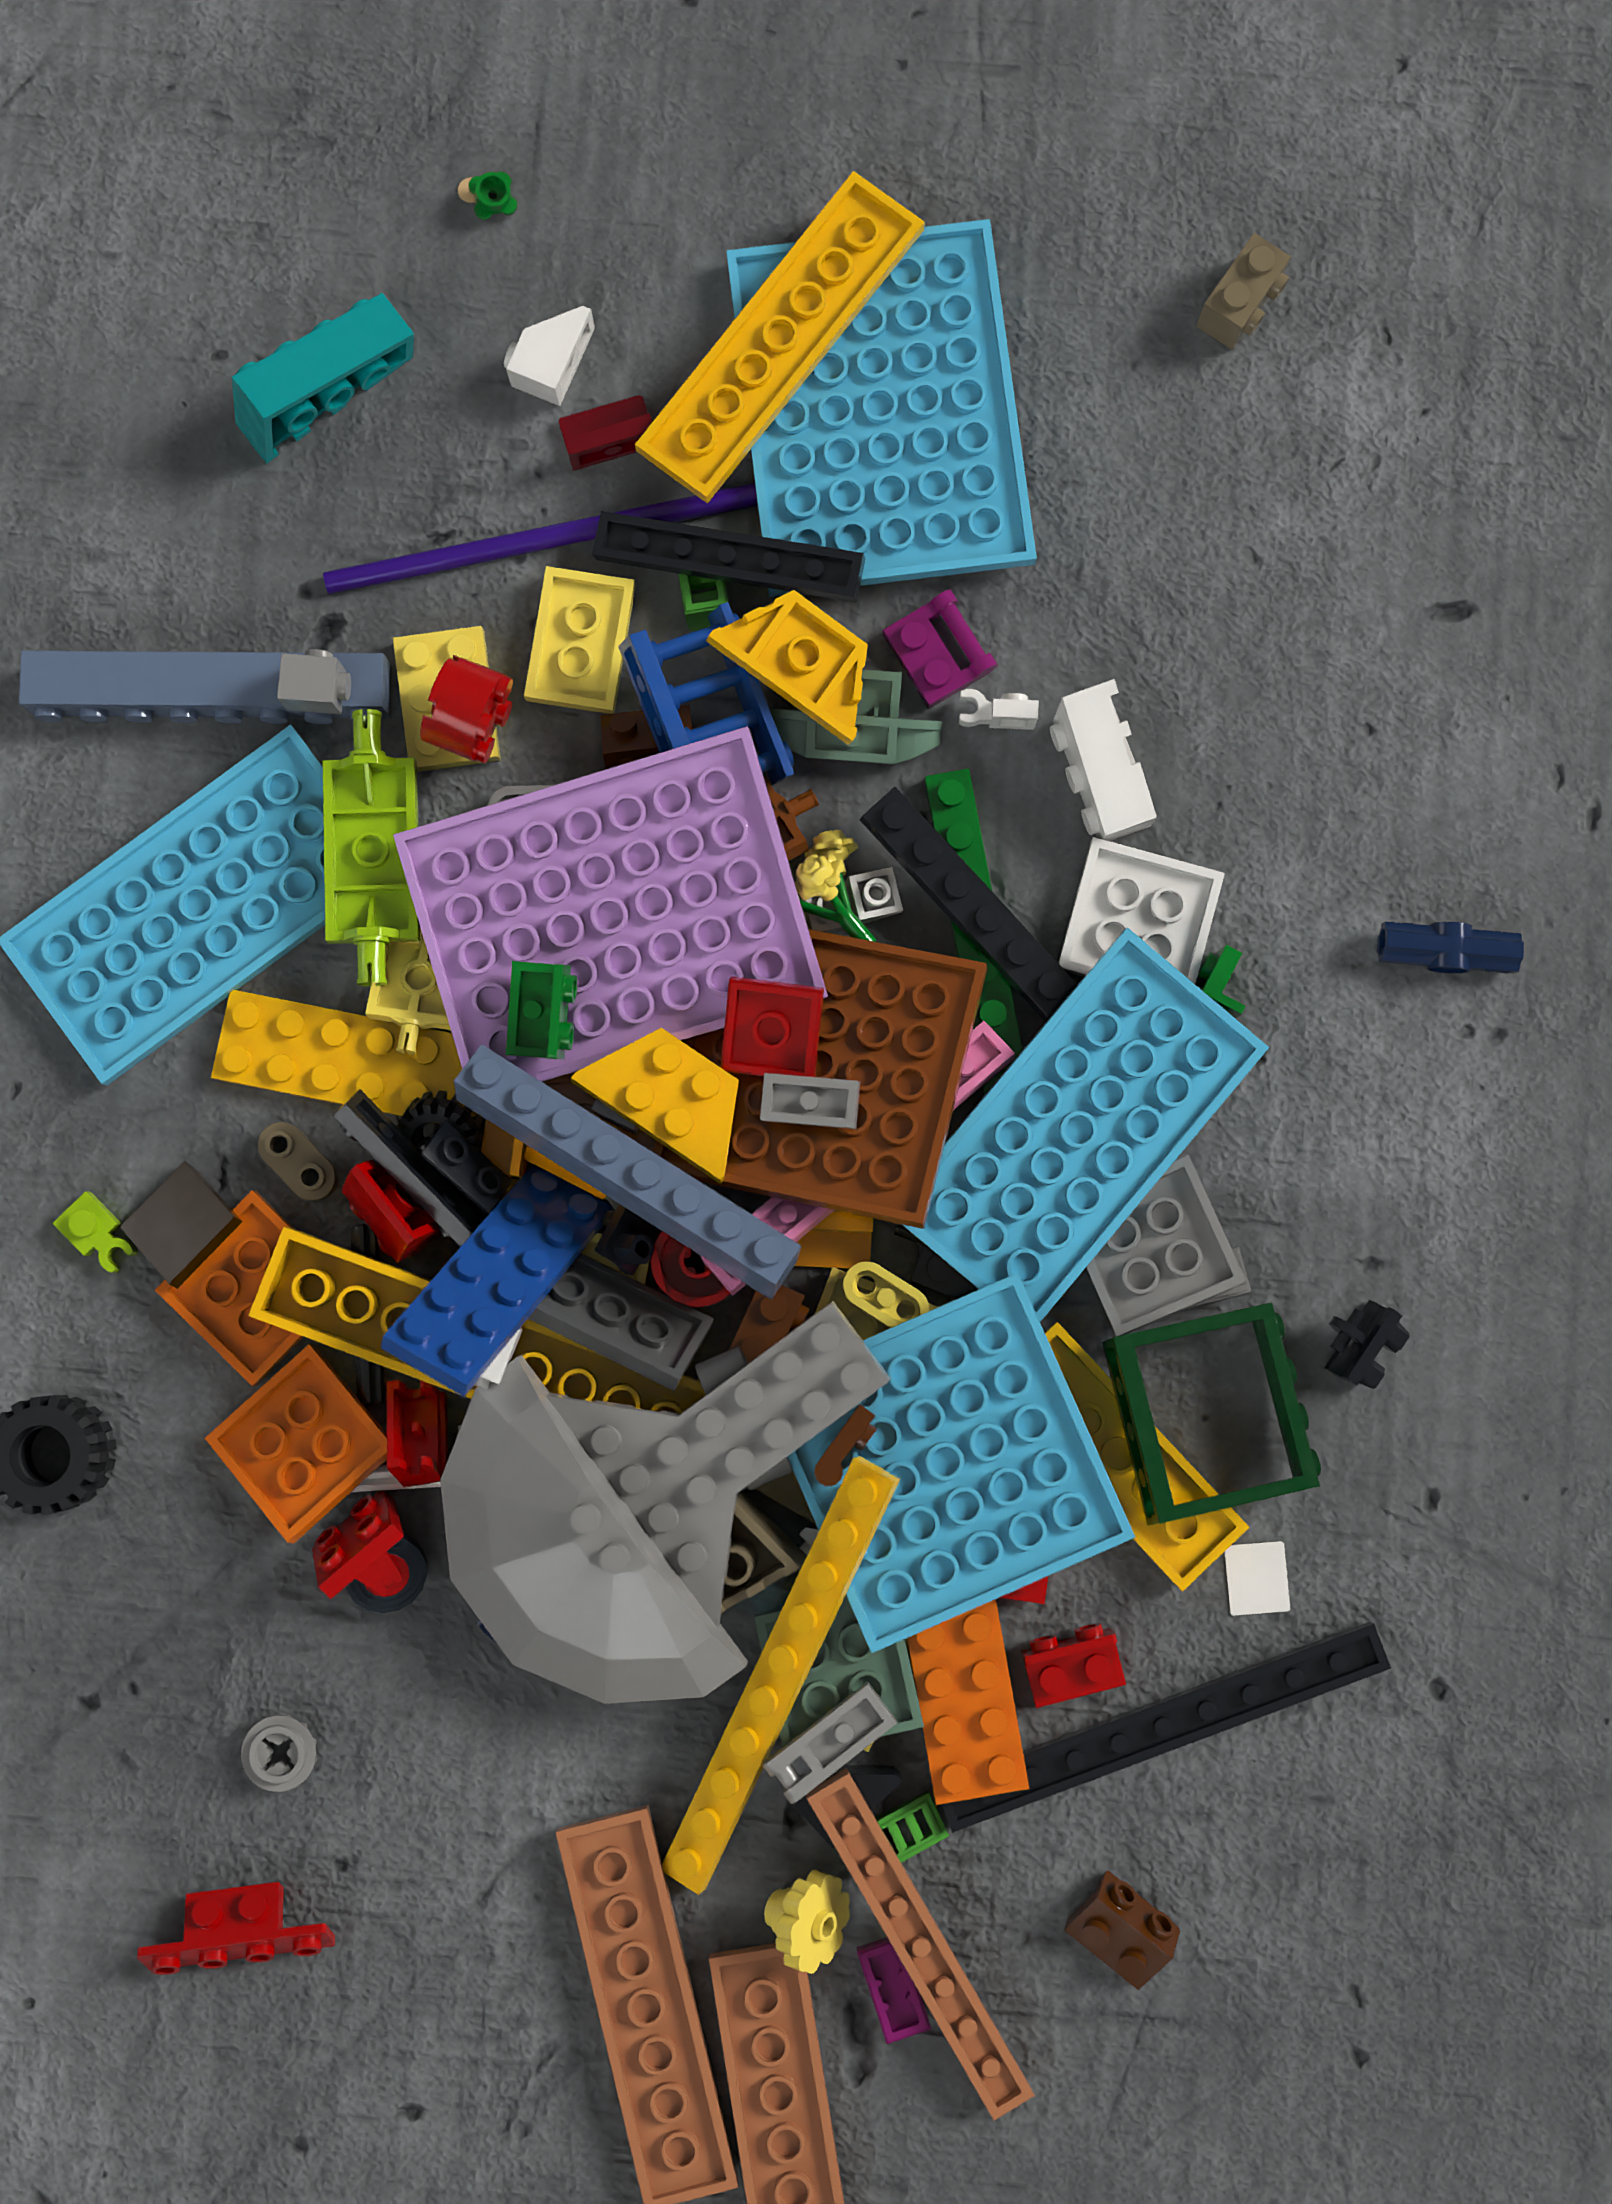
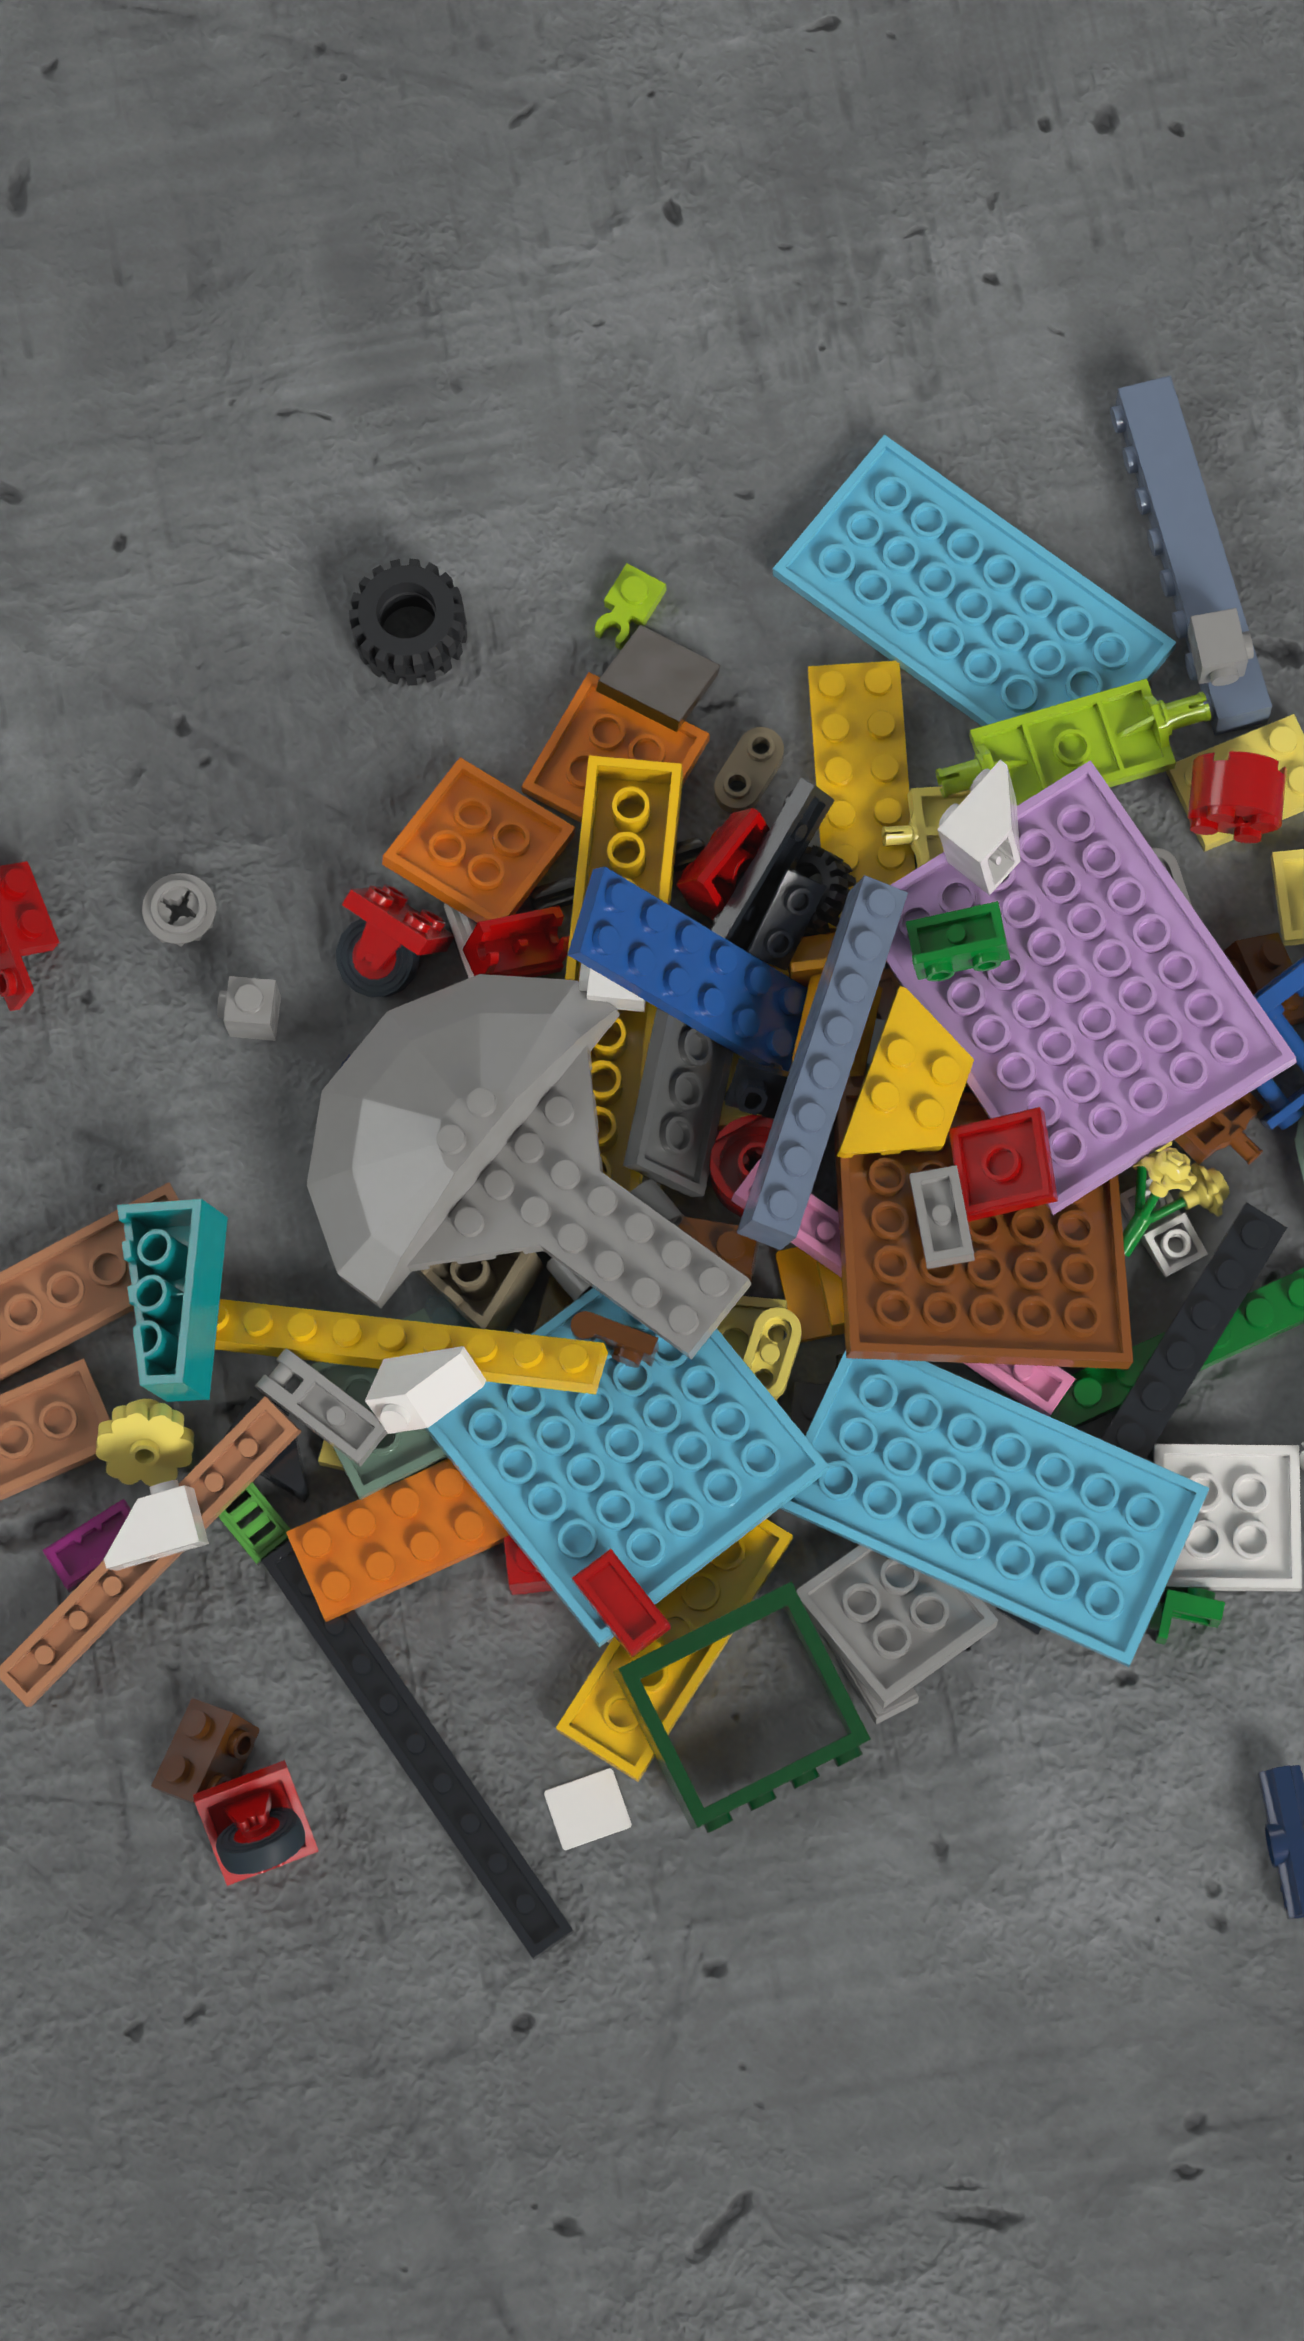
camera: 80 degrees right, 10 degrees down
(401, 1709) = (250, 1008): none -> light grey brick
(442, 955) = (983, 831): none -> white slope
(680, 1863) = (175, 1293): none -> teal wedge
(846, 1646) = (422, 1388): none -> white slope
(909, 1933) = (158, 1527): none -> white slope
(1073, 1665) = (452, 1641): red bracket -> none
(1104, 1506) = (621, 1603): none -> red tile
(1212, 1903) = (255, 1823): none -> plate
(1361, 1340) = (835, 1846): black hips -> none

